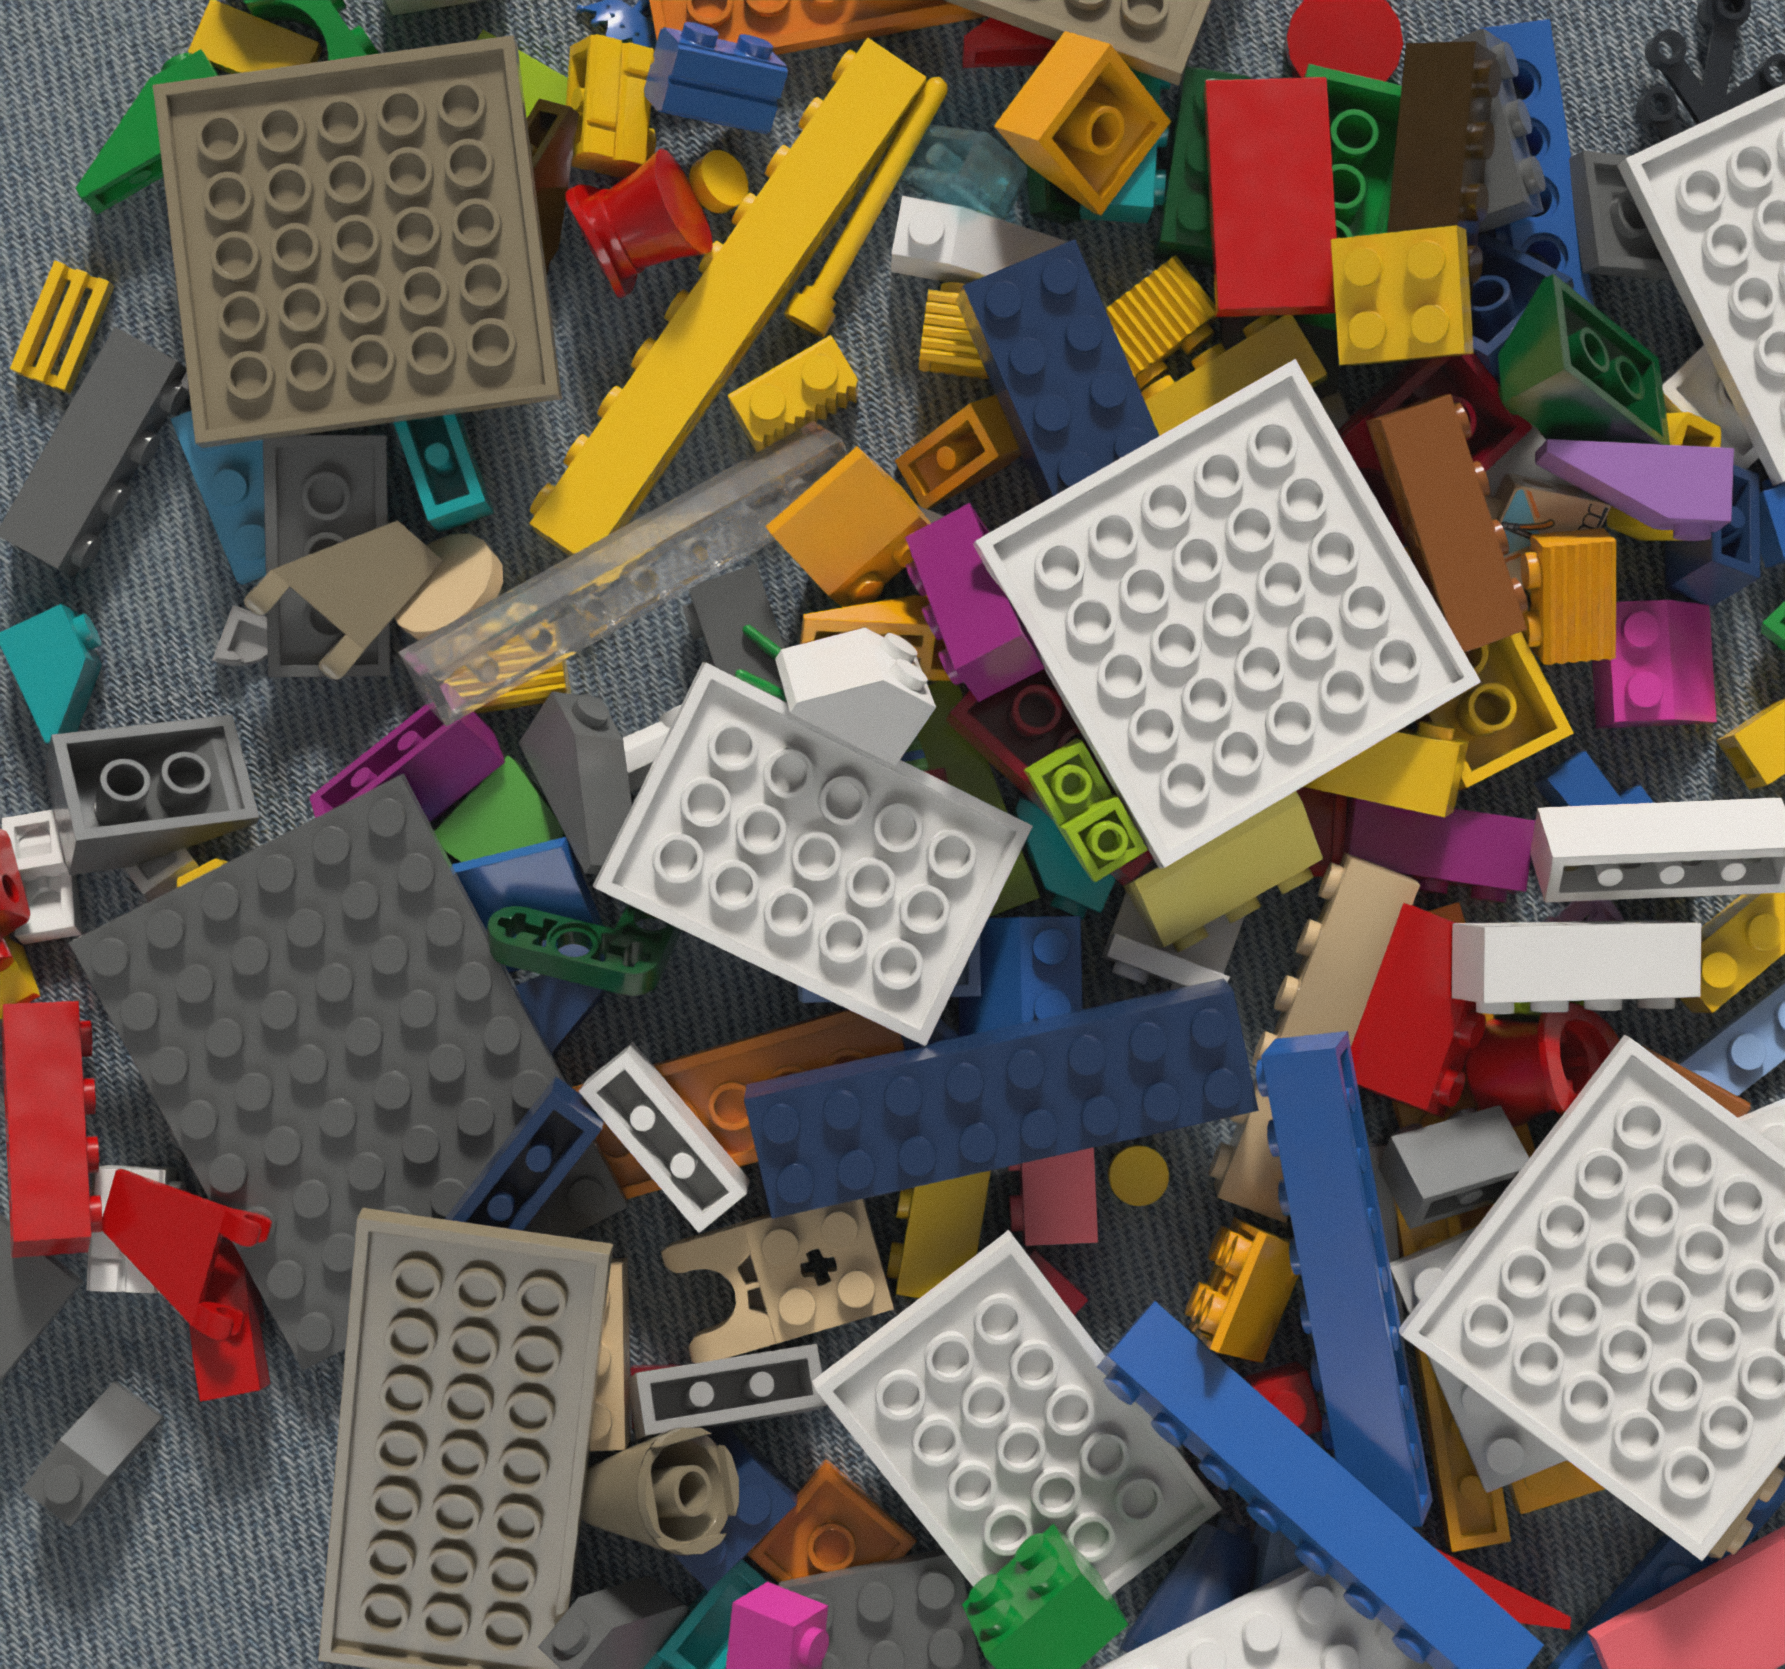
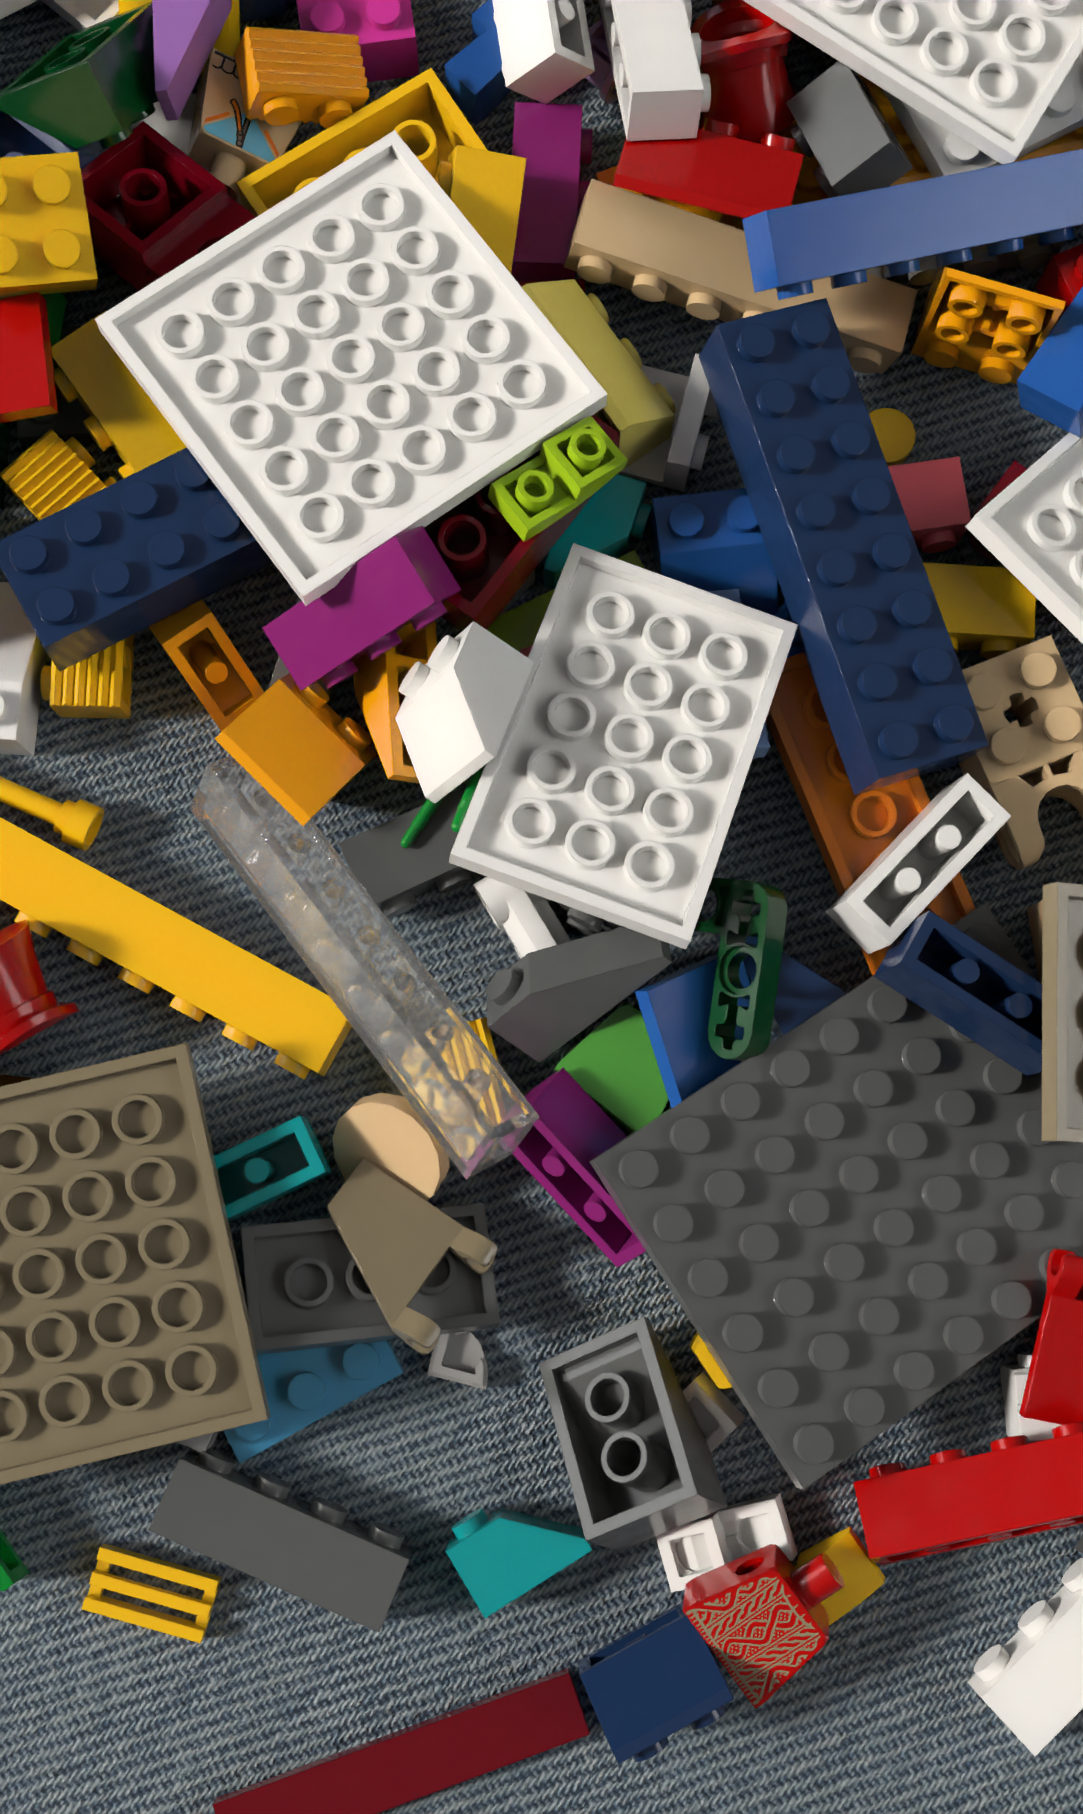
camera: 90 degrees left, 5 degrees down
(795, 394) = (165, 827): yellow brick -> none
(1447, 519) = (232, 177): dark orange brick -> none

